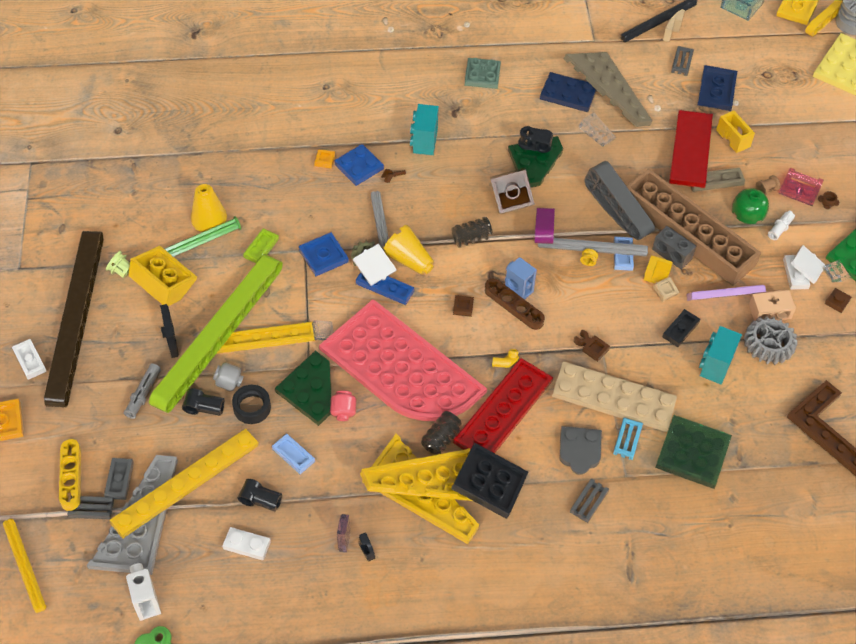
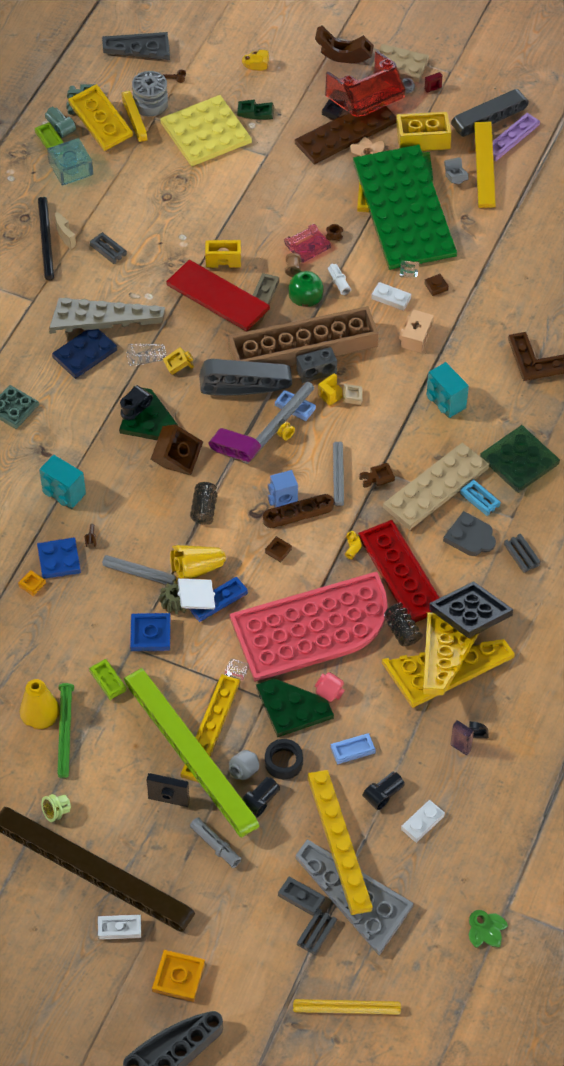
camera: 60 degrees left, 0 degrees up
(68, 474) = (275, 931): yellow beam -> none
(142, 592) = (432, 913): white torso -> none
(161, 275) = (95, 774): yellow slope -> none
(574, 315) = (338, 474): none -> light grey axle
(605, 152) = (178, 360): none -> yellow bracket
(681, 328) = (399, 404): black plate -> none
(717, 88) = (160, 239): dark blue plate -> none
(725, 292) = (384, 354): lavender tile -> none
(769, 346) = (460, 349): light grey gear -> none
(808, 264) = (392, 283): white piece -> none

